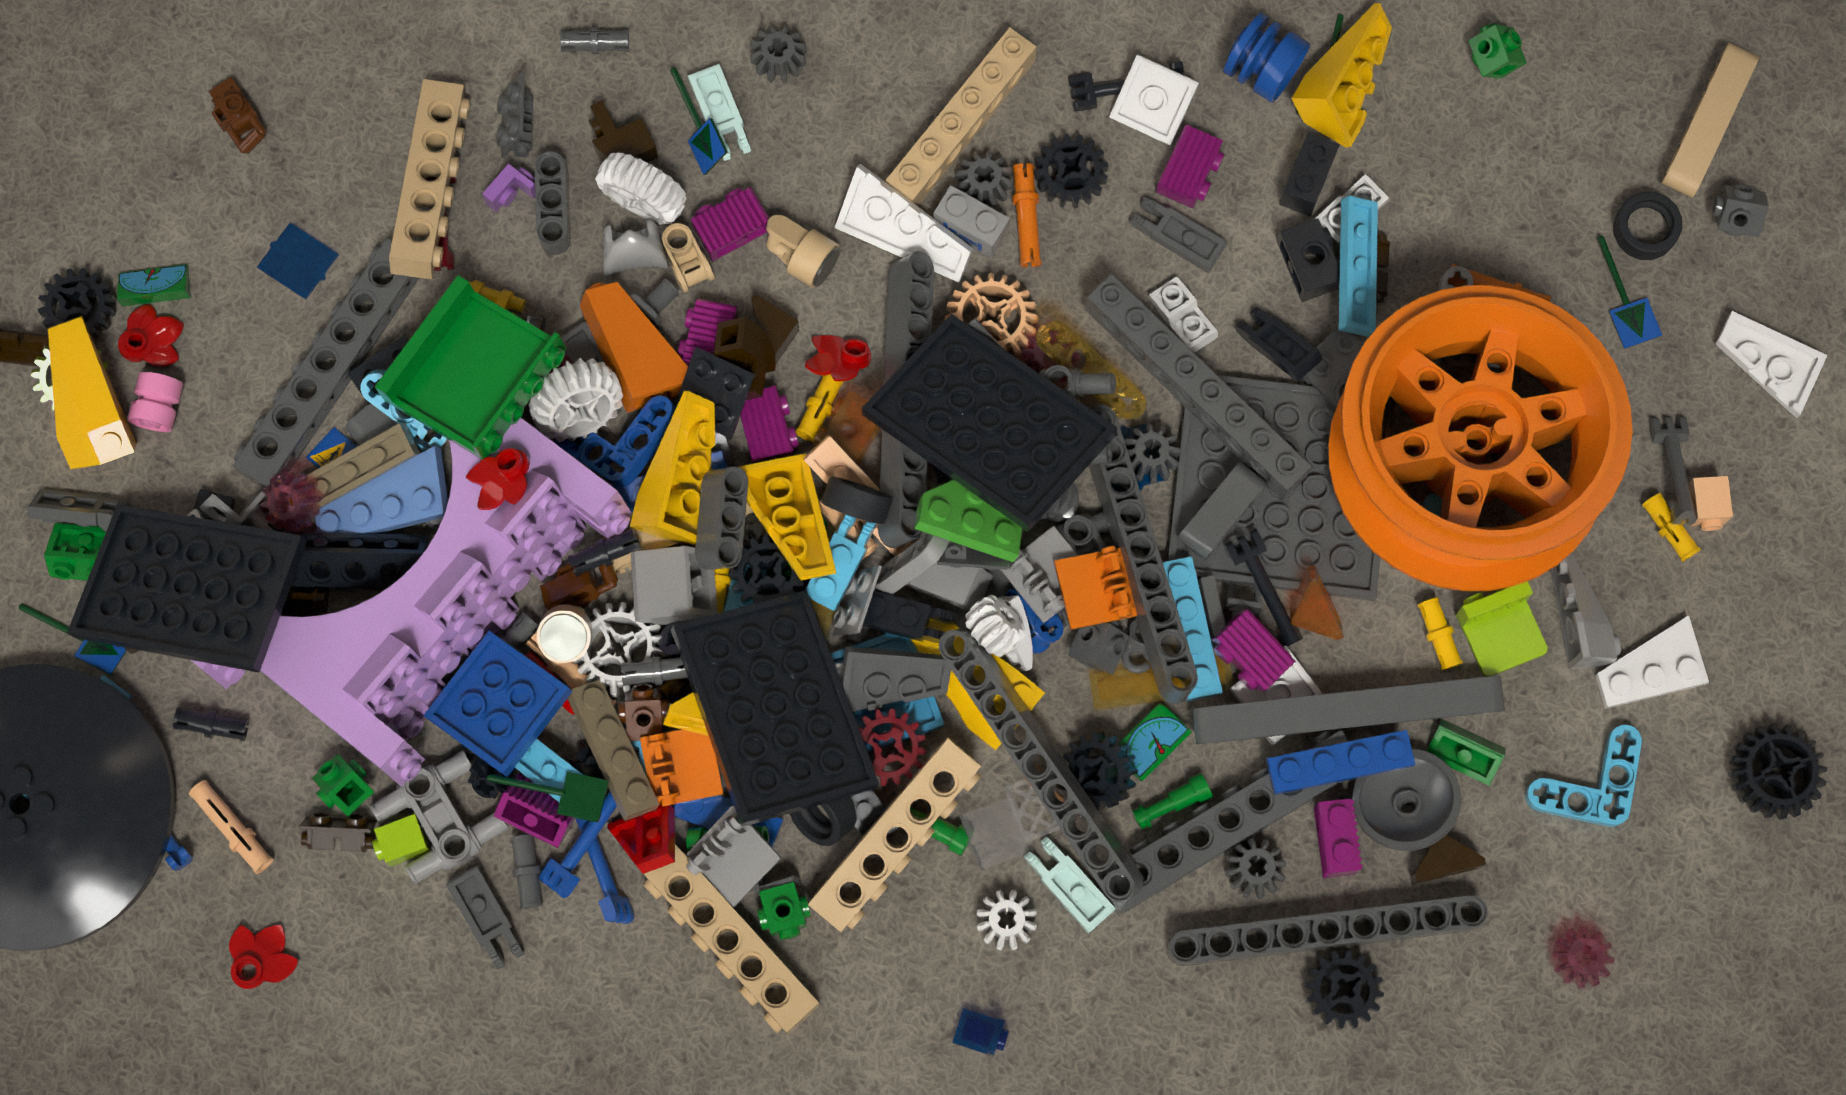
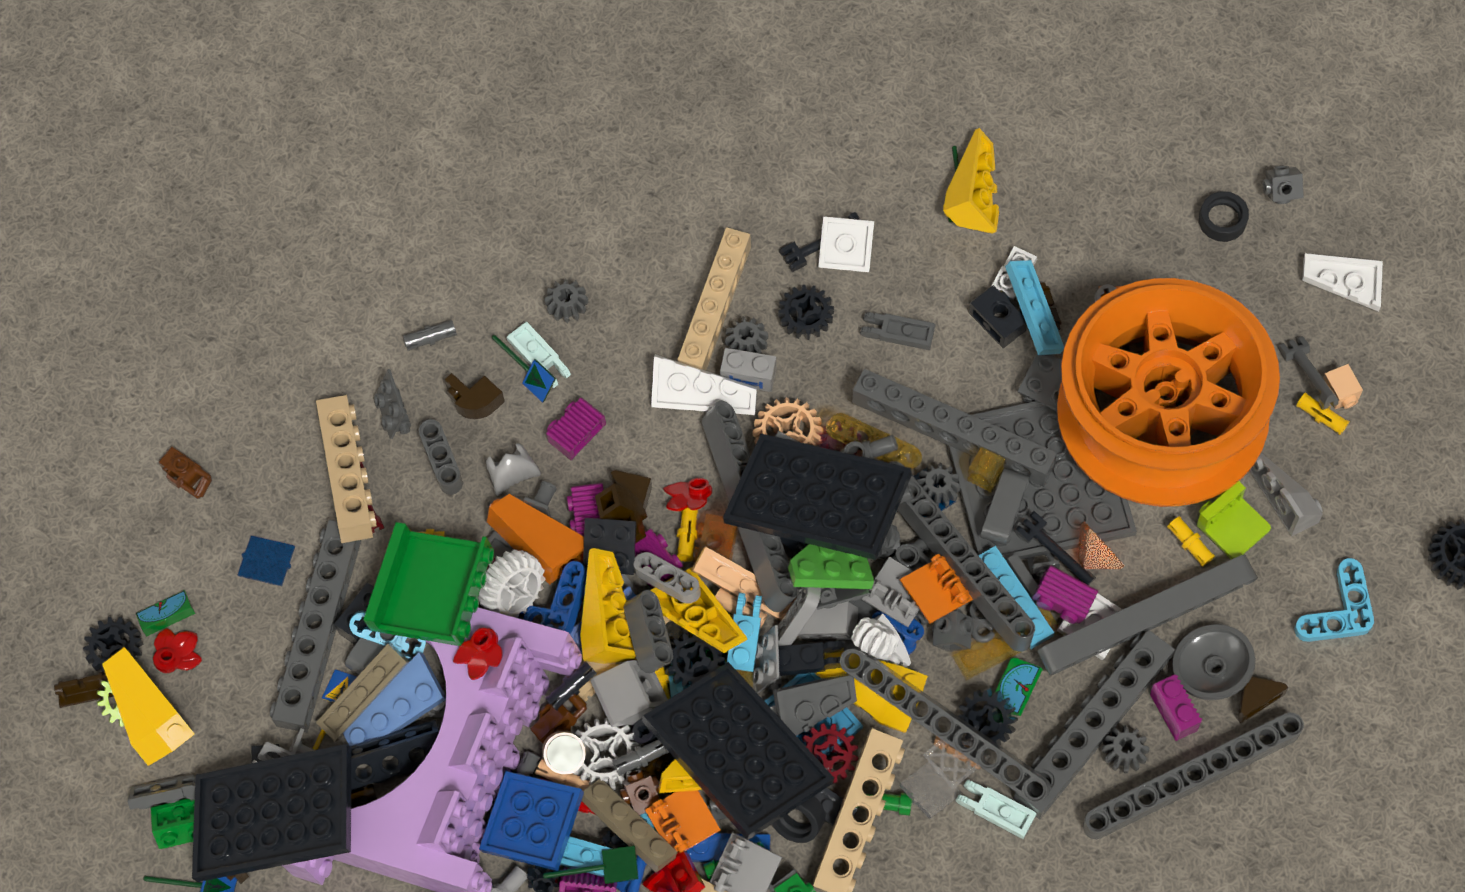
camera: 15 degrees left, 10 degrees down
(155, 401) = (196, 691): bright pink wheel -> none
(279, 504) = (318, 722): clear pink gear -> none
(503, 188) = (401, 457): medium lavender bracket -> none
(641, 188) = (502, 423): white gear -> none
(686, 262) = (555, 465): tan piece -> none
(767, 443) = (671, 587): none -> light grey beam
(806, 253) = (644, 429): tan piece -> none
(857, 500) = (742, 583): black tyre -> none
(1018, 920) = (949, 849): white gear -> none
(1025, 202) = (782, 345): orange pin -> none
(1182, 314) = (920, 379): white slope -> none
(1190, 166) = (888, 281): magenta brick -> none
(1194, 791) = (1061, 710): green piece -> none
(1216, 455) = (985, 469): none -> clear yellow brick
(1266, 57) = (914, 189): blue wheel -> none
(1280, 344) = (1000, 379): black hinge -> none
(1309, 174) = (975, 259): black brick -> none
(1340, 762) = (1157, 651): blue plate -> none
(1355, 1003) = (1232, 818): black gear -> none
(1466, 752) = (1243, 616): green slope -> none
(1497, 51) = (1073, 133): green brick -> none
(1589, 971) = (1386, 721): clear pink gear -> none
(1635, 320) = (1240, 283): piece -> none
(1656, 668) = (1350, 514): white wing -> none
(1710, 120) = (1238, 132): tan beam -> none

